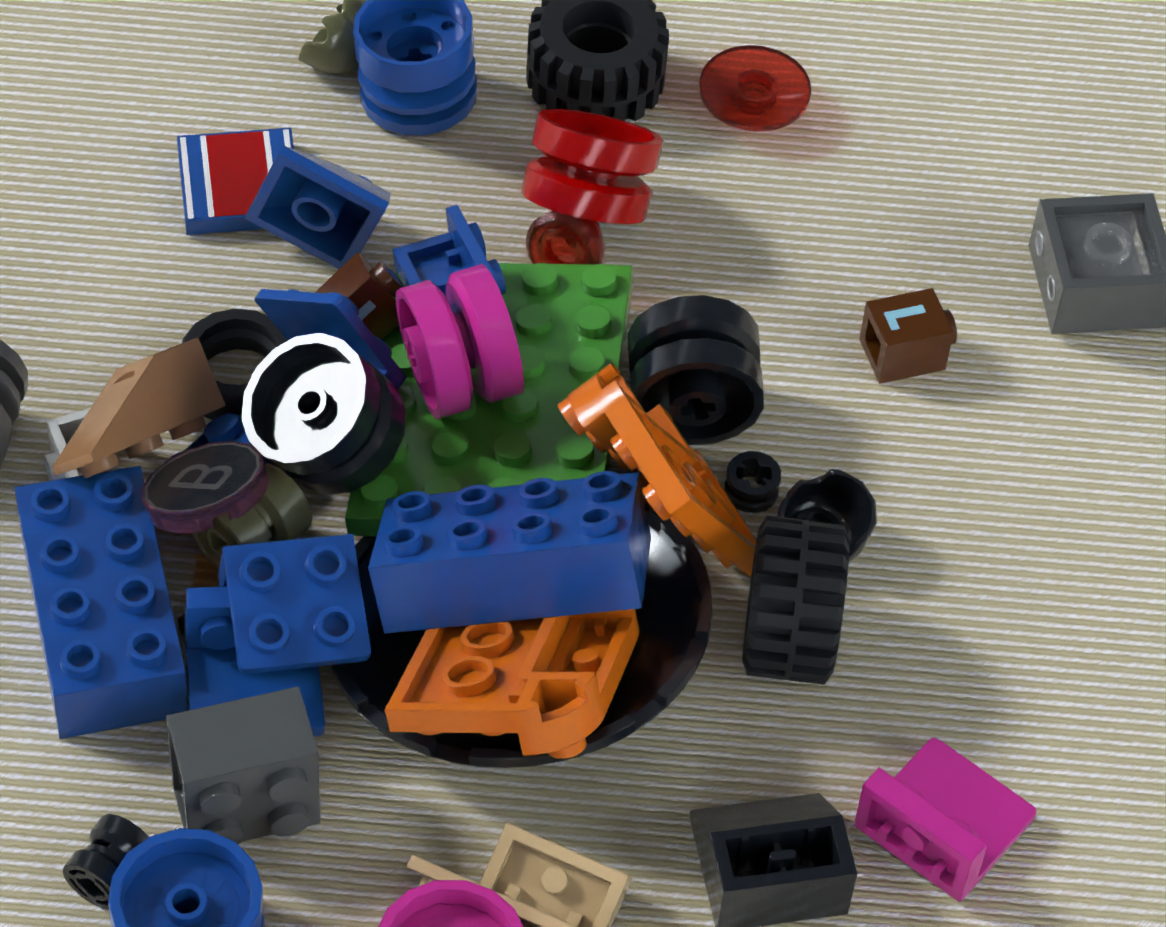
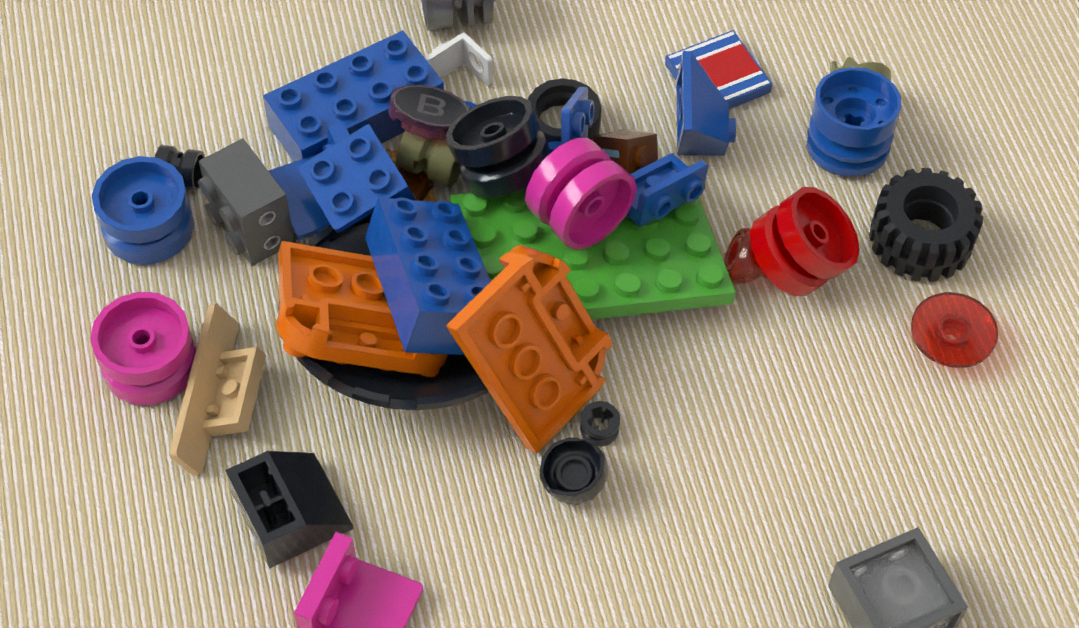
camera: 75 degrees right, 5 degrees up
(139, 404) = (488, 68): medium nougat slope -> none
(699, 365) = (655, 350): black wheel -> none
(796, 600) = (477, 456): black tyre -> none
(907, 335) = (769, 484): reddish brown brick -> none

